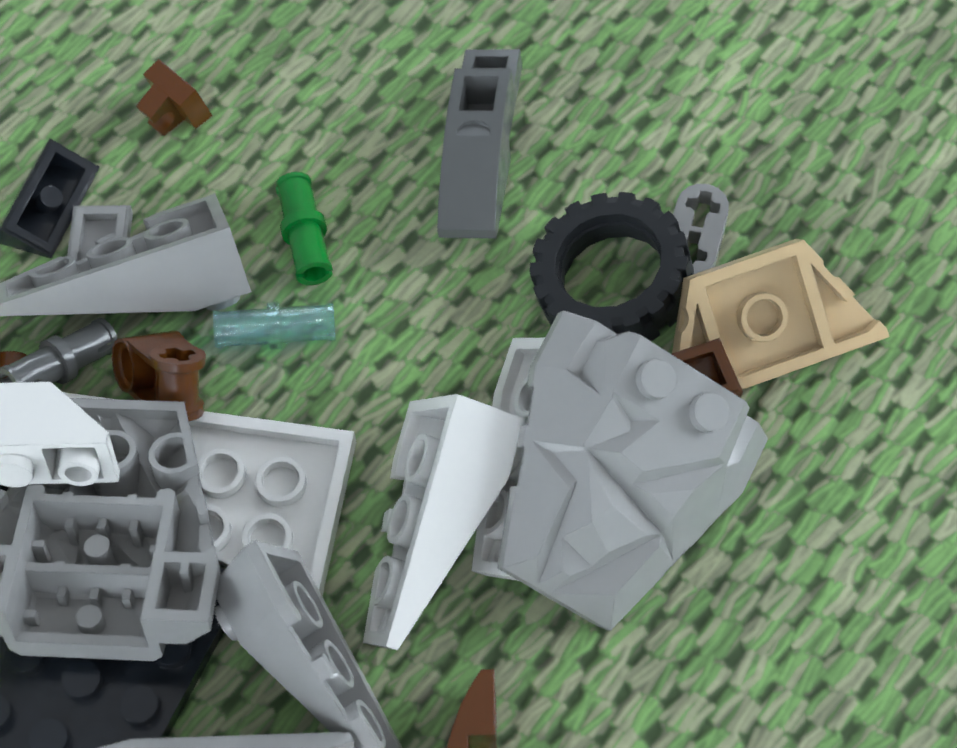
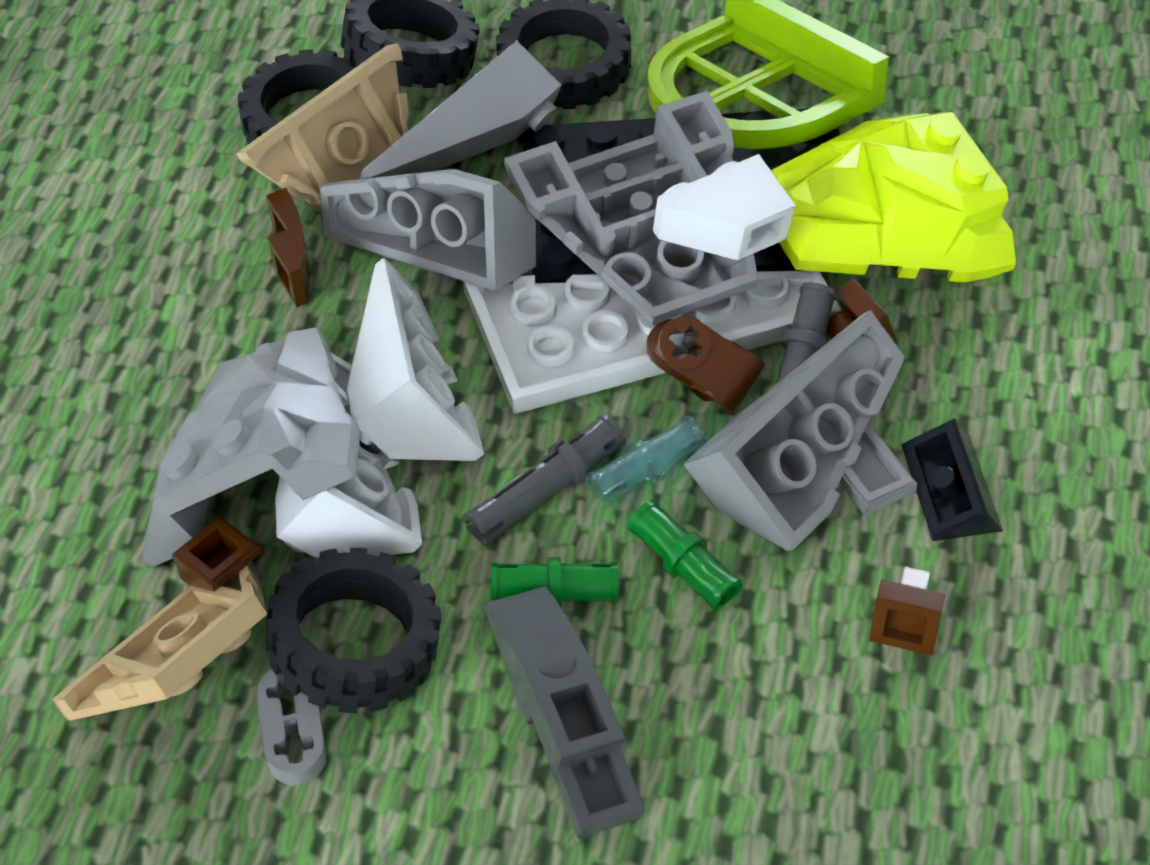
camera: 150 degrees right, 10 degrees down
(423, 252) = (563, 581): none -> green pin
(443, 338) = (531, 489): none -> dark grey pin

